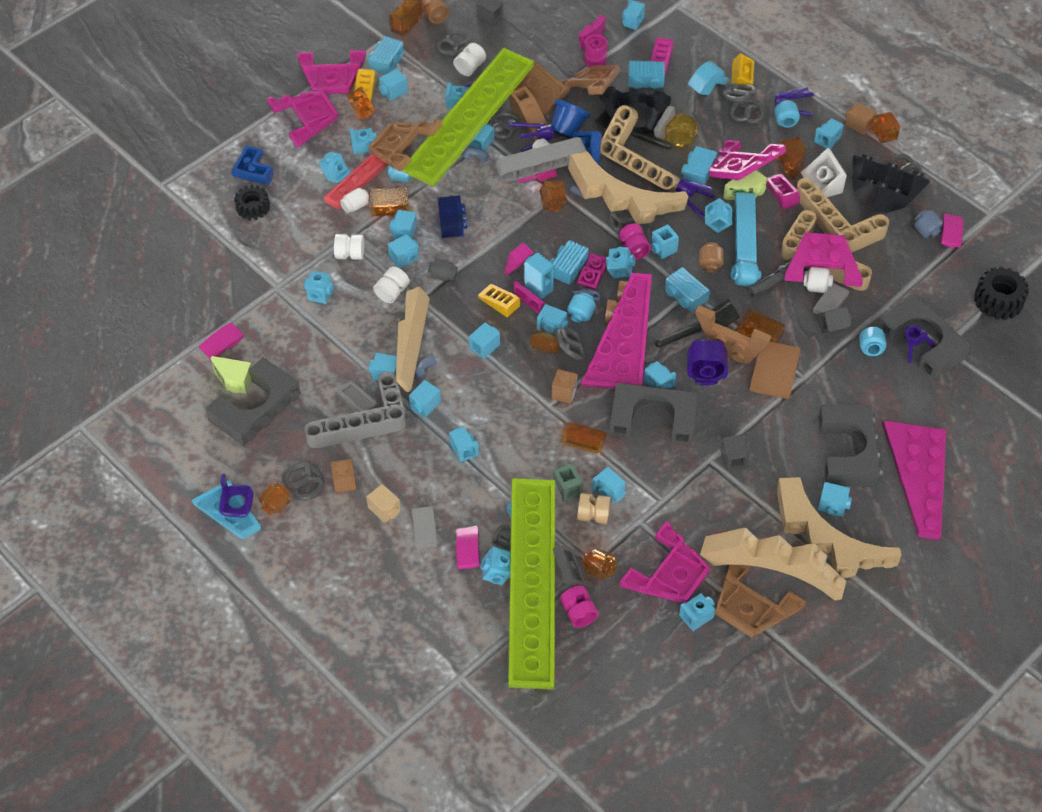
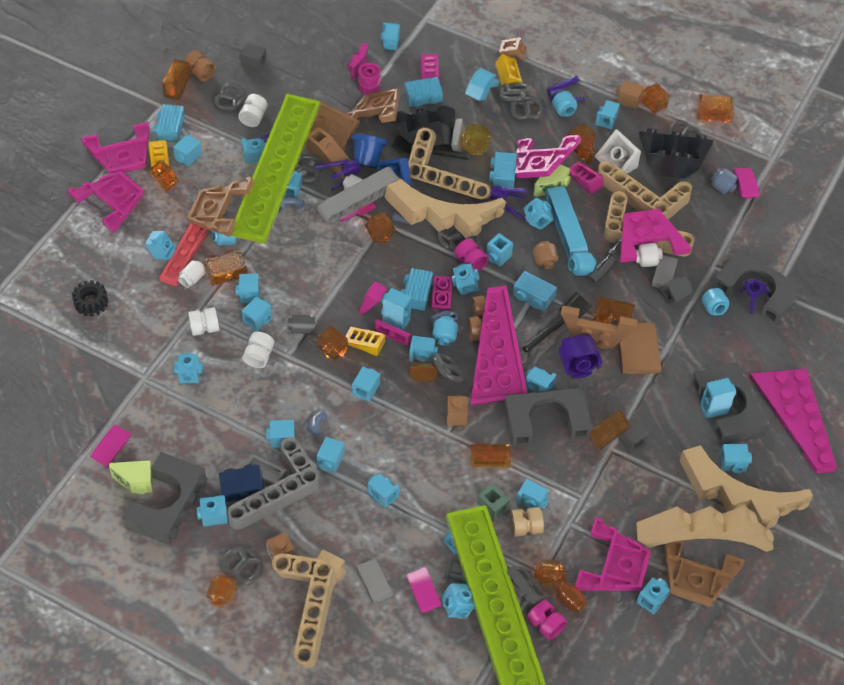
camera: 20 degrees left, 0 degrees up
(209, 504) = (180, 613): medium azure wing -> none
(232, 490) = (182, 591): dark purple piece -> none
(250, 169) = (75, 265): blue brick -> none
(293, 423) = (212, 511): none -> medium azure brick
(328, 403) = (241, 482): none -> dark blue brick
(353, 530) = (312, 603): none -> tan beam
(361, 140) = (177, 212): medium azure brick -> none
(410, 336) = (295, 396): tan slope -> none
(451, 216) = (290, 269): clear blue brick -> none
(466, 295) = (333, 343): none -> clear orange brick
(613, 592) = (572, 597): none -> clear orange brick
(712, 440) = (610, 429): none -> clear orange tile
(755, 48) = (513, 47): none -> medium nougat bracket
(836, 435) = (718, 397): none -> medium azure brick
(946, 149) = (715, 108): none -> clear orange brick
(998, 304) = (805, 241): black tyre -> none

